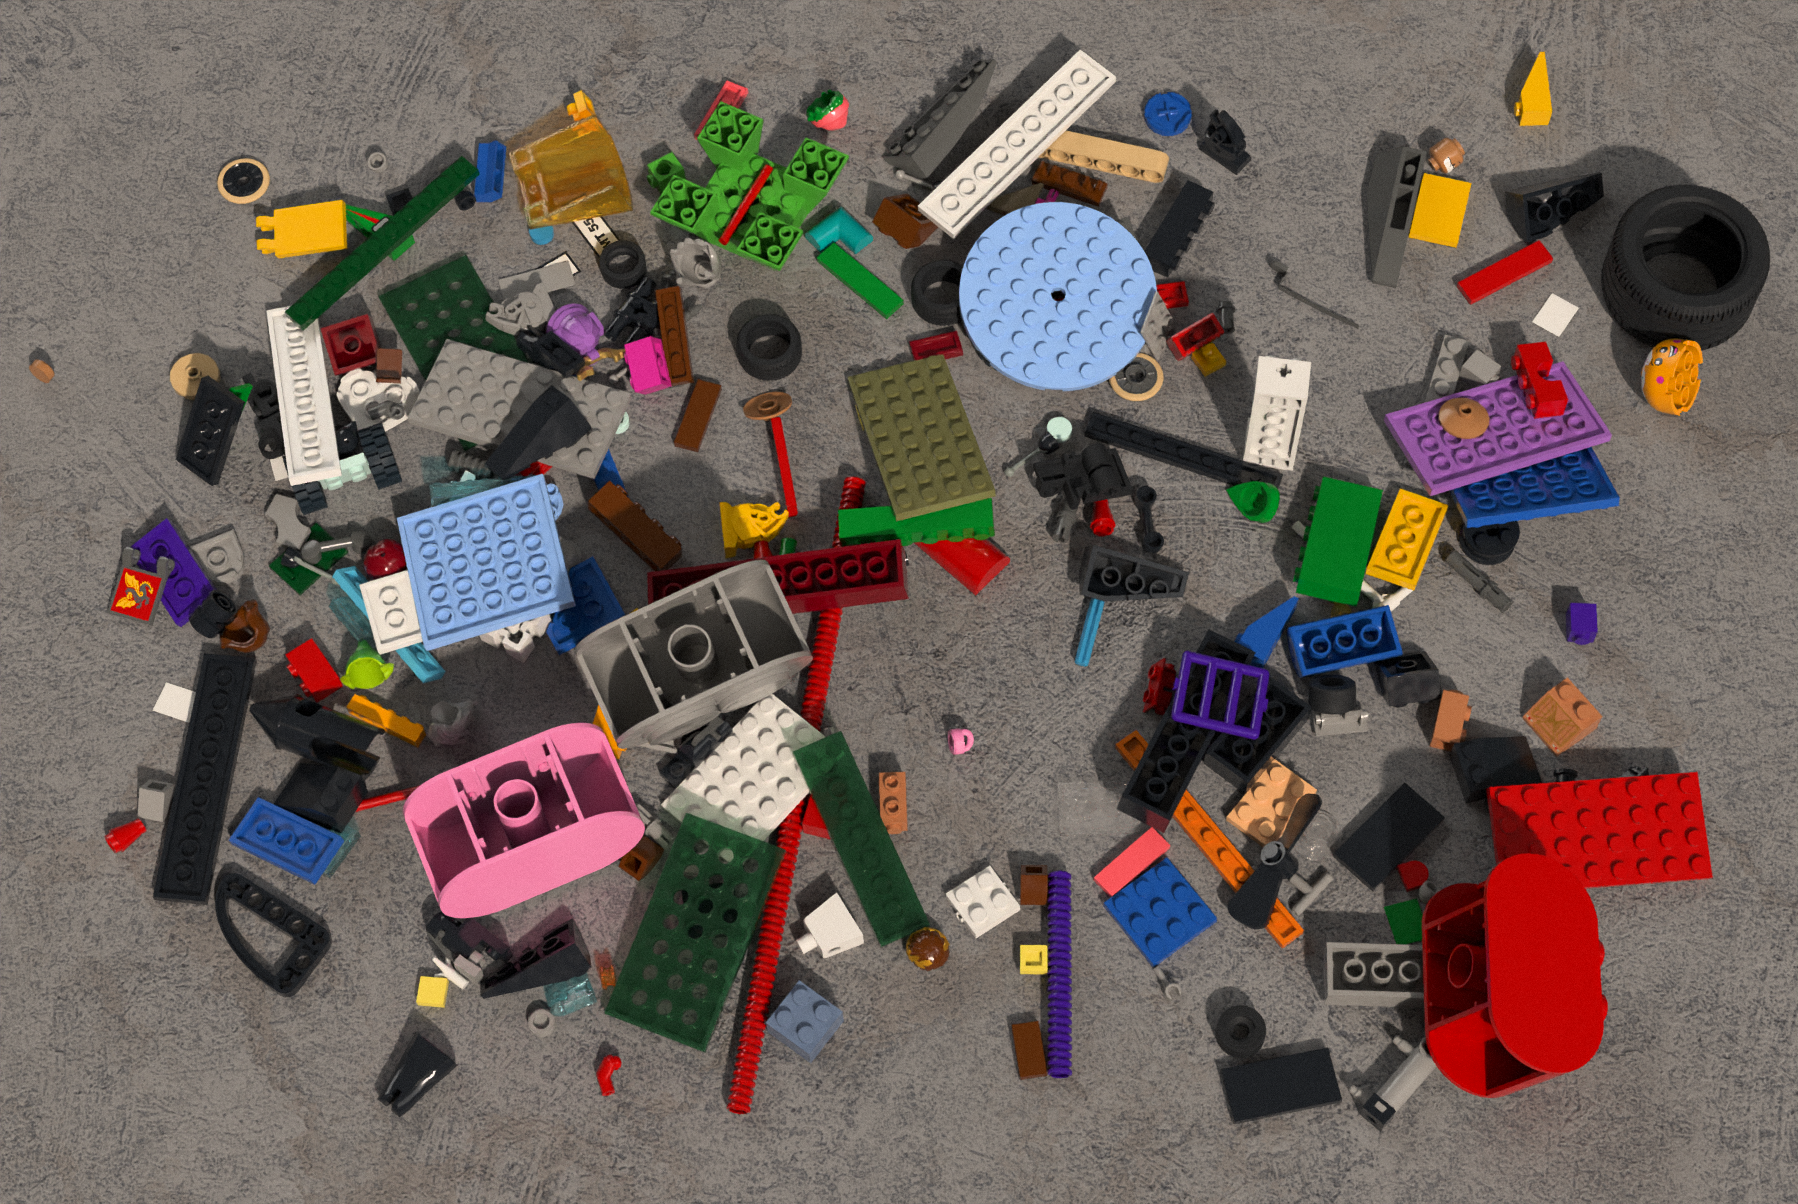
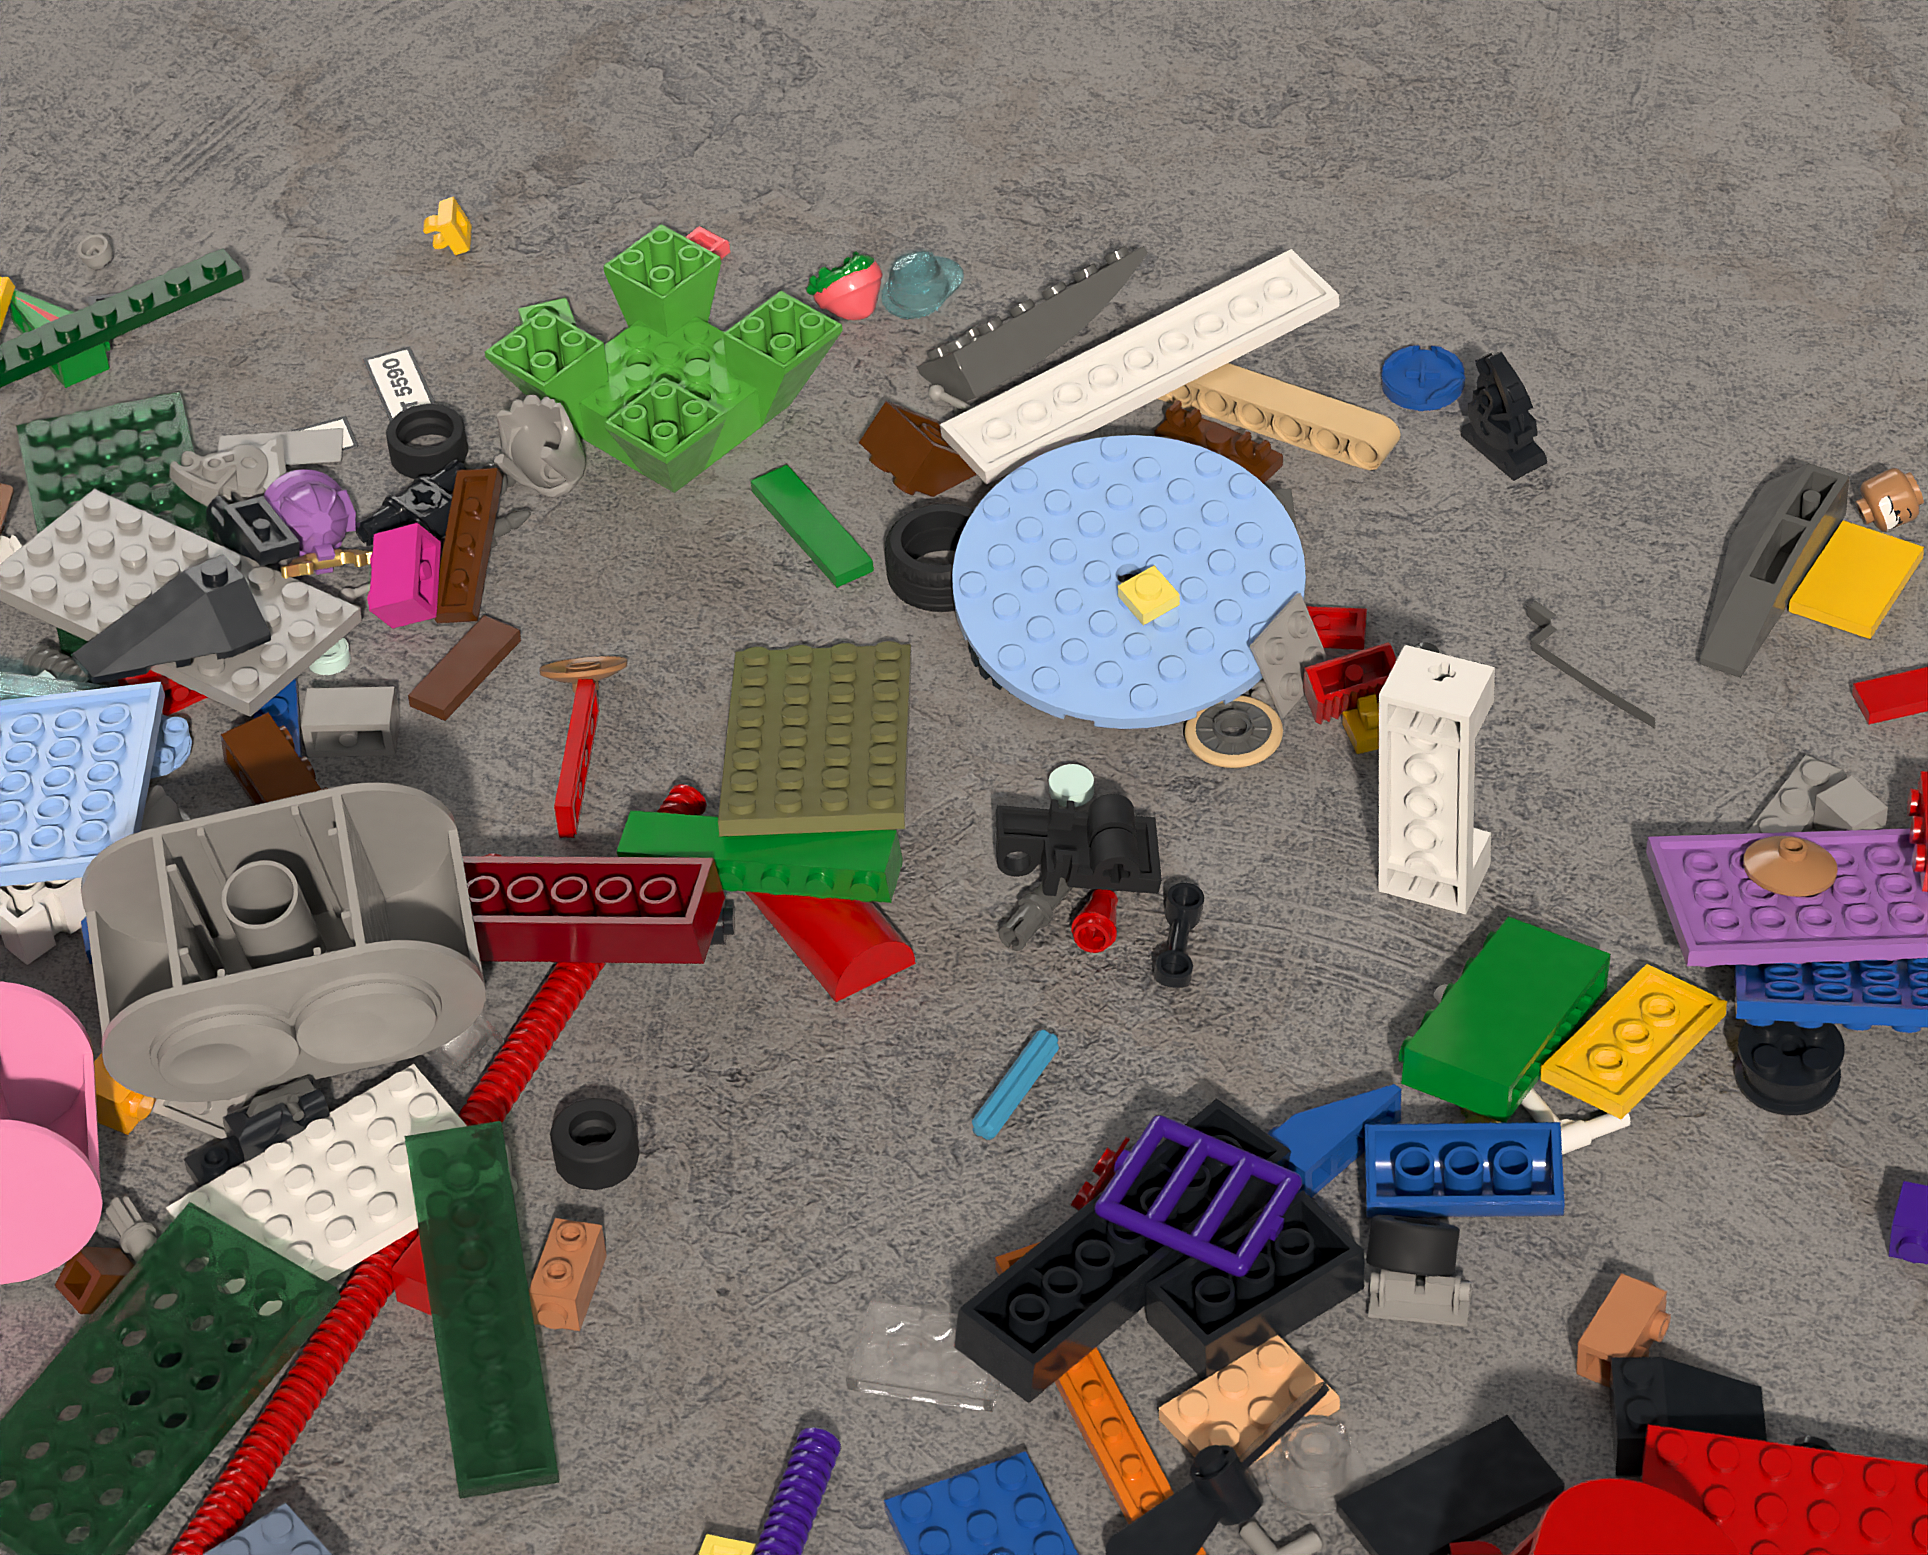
camera: 15 degrees right, 20 degrees down
(464, 199) = (210, 319): black hinge -> none
(491, 169) = (265, 289): blue piece -> none
(542, 235) = (315, 382): dark azure tile -> none
(571, 175) = (394, 303): clear yellow windscreen -> none
(648, 466) = (350, 721): none -> light grey brick
(745, 204) = (661, 370): red bar -> none
(748, 524) = (497, 825): yellow piece -> none
(769, 326) = (620, 615): black tyre -> none
(830, 929) = (378, 1448): white torso -> none
(839, 226) = (802, 445): teal brick -> none
(867, 98) = (920, 284): none -> clear light blue piece
(879, 701) = (596, 1165): none -> black tyre
(928, 948) = (541, 1513): reddish brown hair -> none
(945, 344) = (925, 635): dark red tile -> none
(956, 740) = (714, 1206): bright pink tile -> none
(982, 902) = (667, 1460): white plate -> none
(1033, 885) = (765, 1448): reddish brown brick -> none
(1046, 444) = (1036, 797): hinge -> none
(1075, 309) = (1148, 595): none -> light yellow plate
(1122, 577) = (1101, 1008): black wedge -> none
(1132, 862) = (962, 1448): coral tile -> none
(1177, 452) = (1282, 860): black tile -> none
(1178, 228) = (1380, 532): black brick -> none
(1256, 500) = (1380, 938): green piece -> none
(1408, 679) = (1565, 1256): black slope -> none
(1486, 588) = (1760, 1143): dark grey pin -> none
(1562, 717) = (1839, 1364): nougat slope -> none

